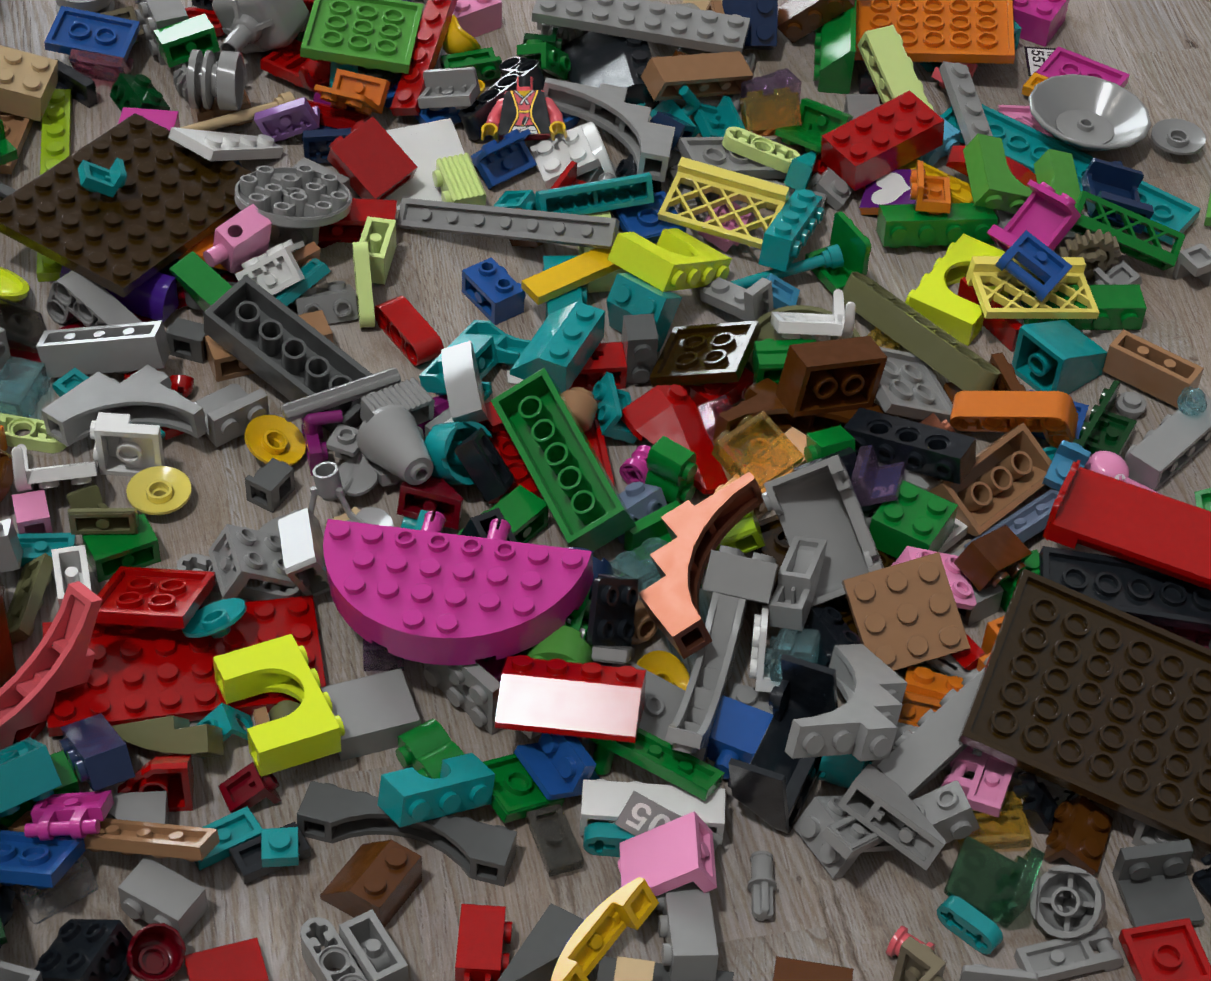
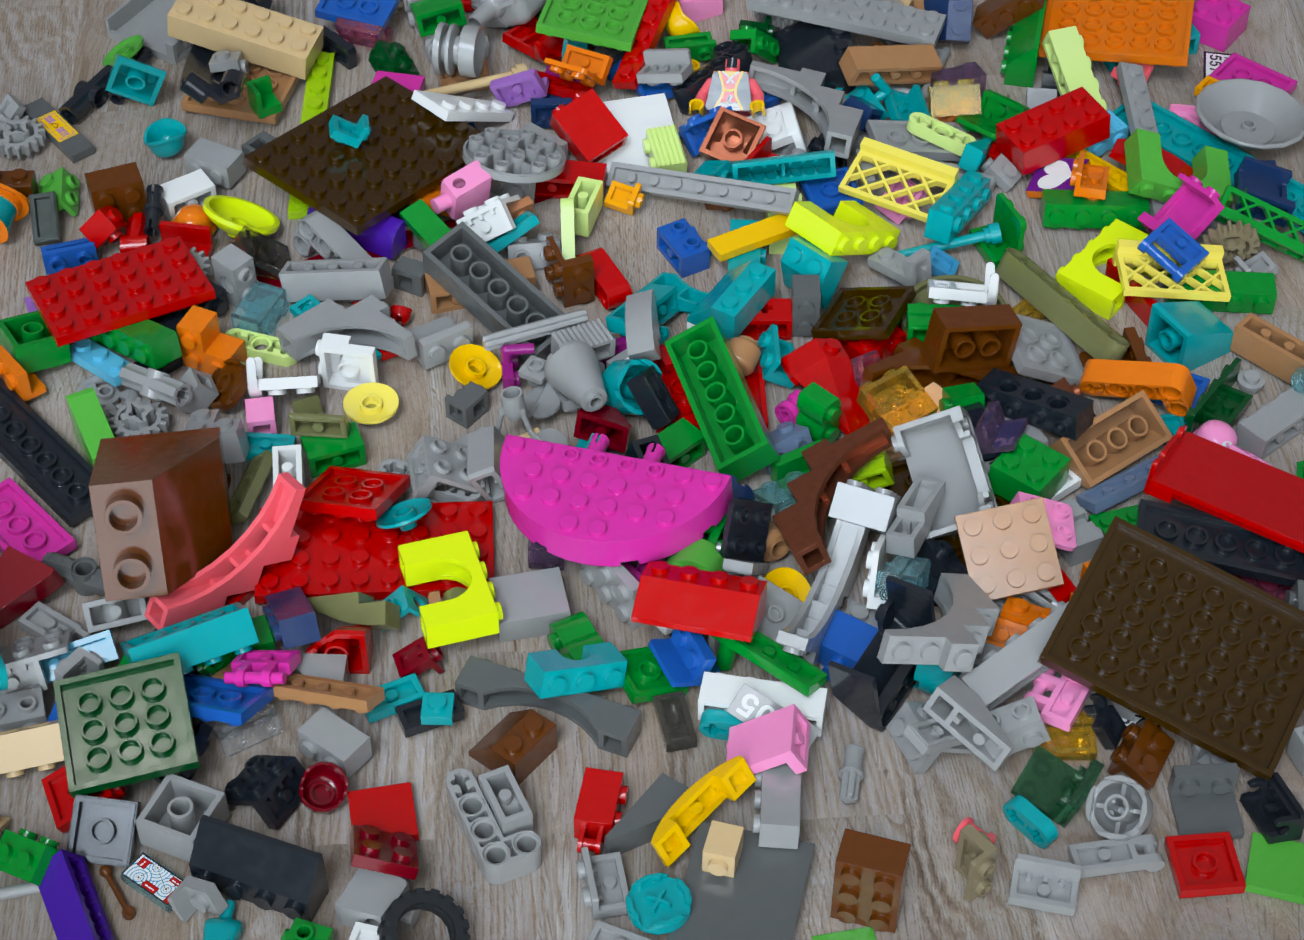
camera: 10 degrees right, 0 degrees up
(372, 333) = (570, 278): none -> reddish brown bracket
(419, 237) = (624, 197): none -> light orange bracket
(532, 164) = (731, 136): none -> slope
(993, 558) = (1096, 506): reddish brown brick -> none
(1062, 462) = (1178, 418): dark azure bracket -> none

